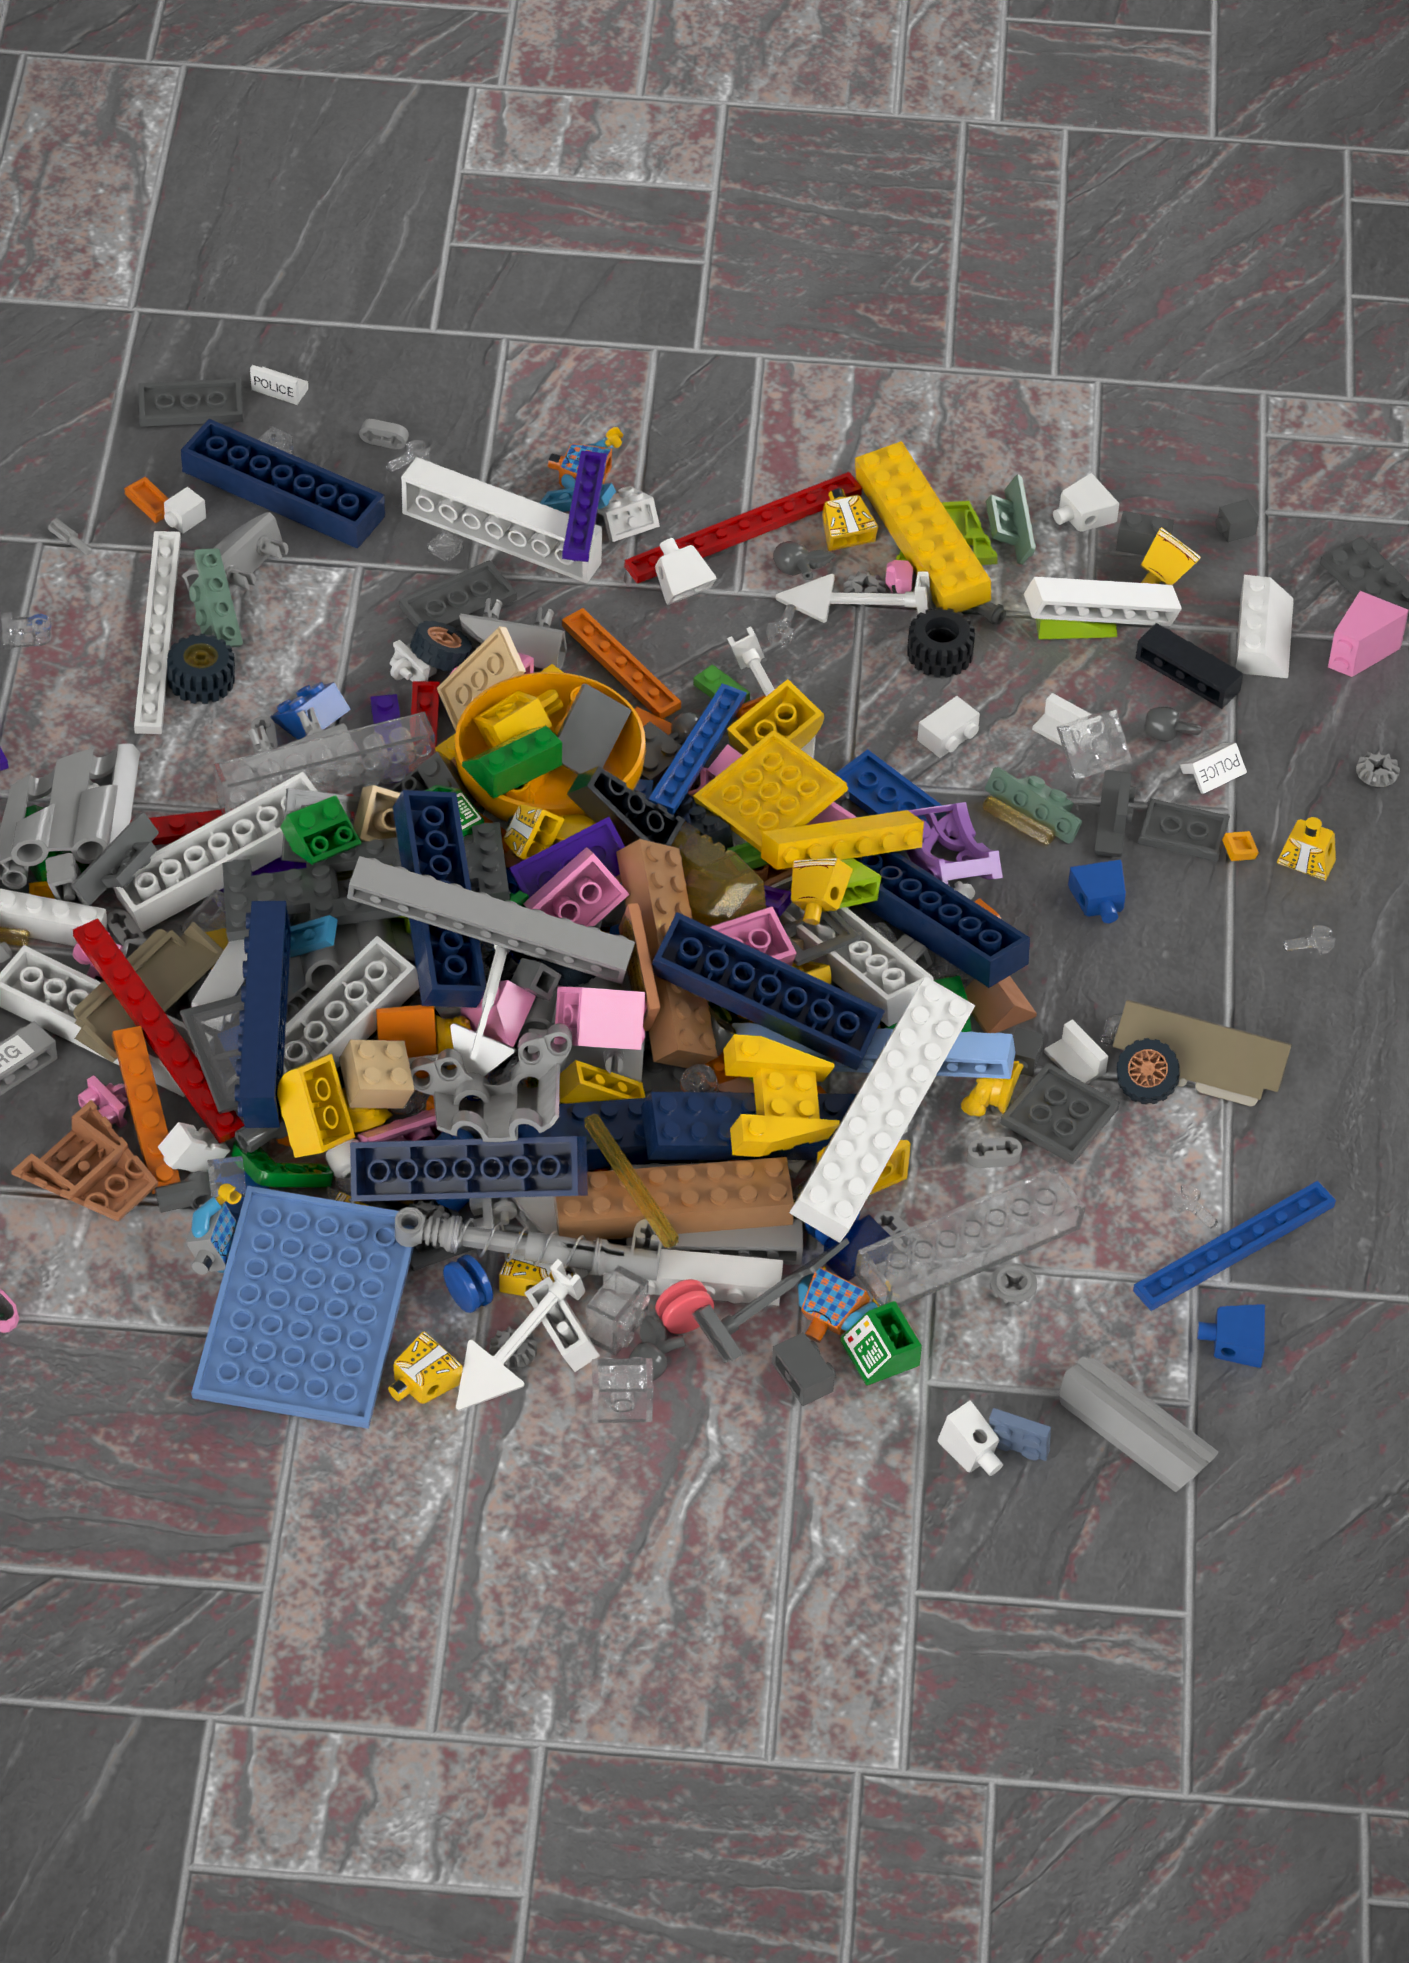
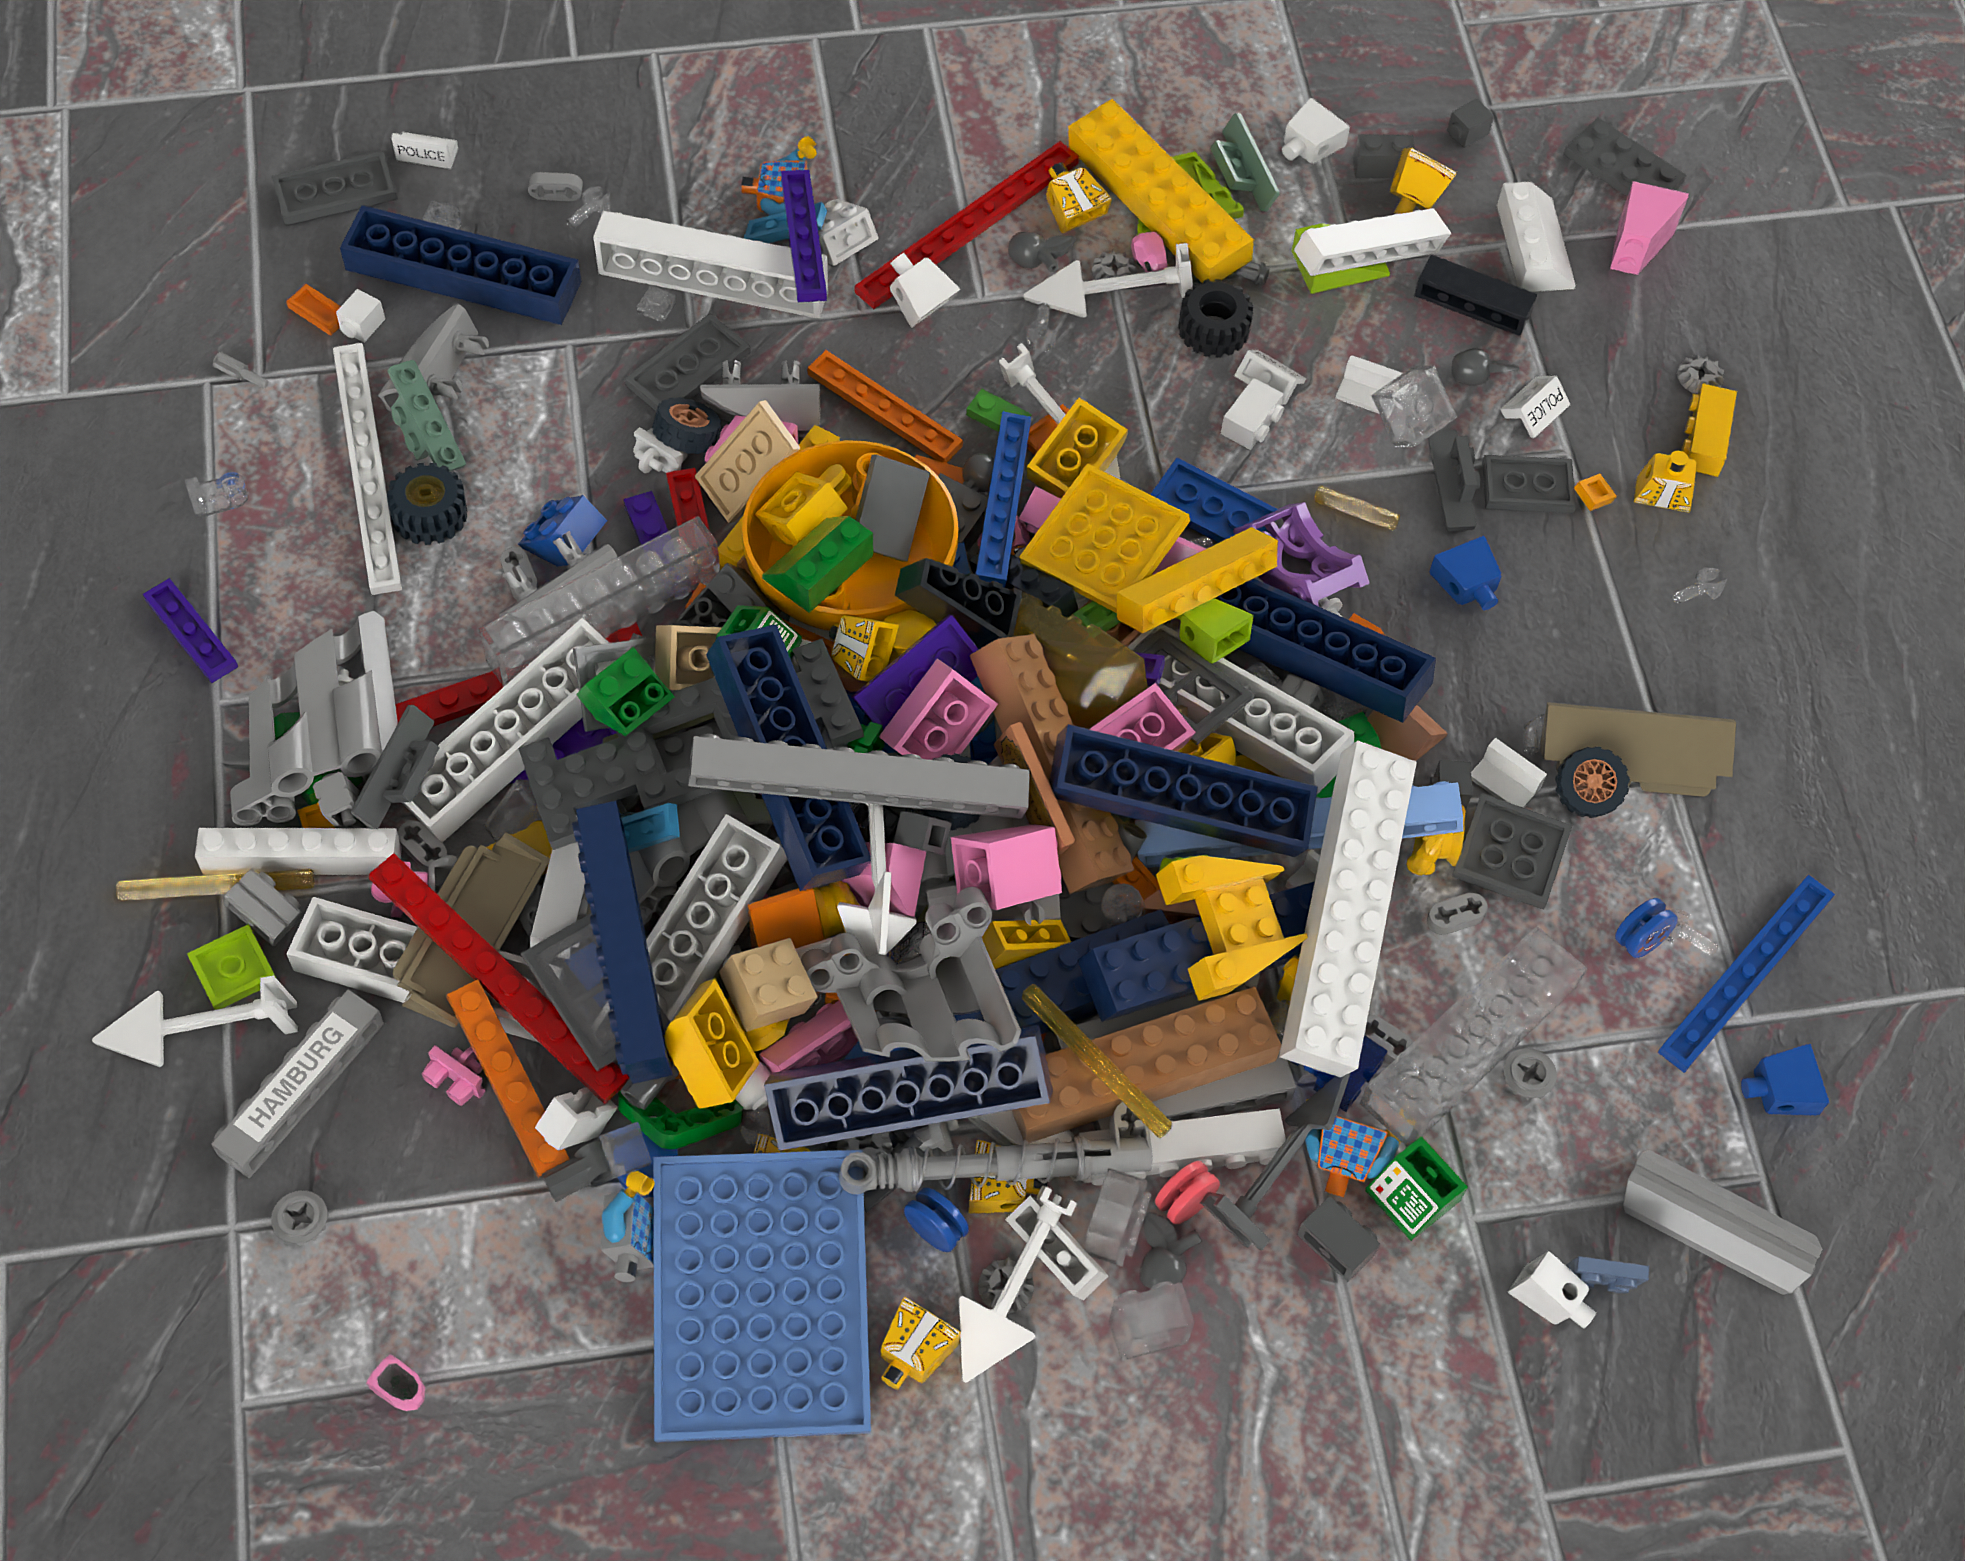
camera: 15 degrees left, 10 degrees up
(91, 1167) = (460, 1166): nougat wedge -> none
(819, 886) = (1195, 645): yellow torso -> none
(976, 696) = (1270, 372): none -> white panel
(1036, 801) = (1369, 482): sand green bracket -> none
(1153, 1190) = (1646, 927): none -> blue head
(1365, 814) = (1709, 428): none -> yellow brick

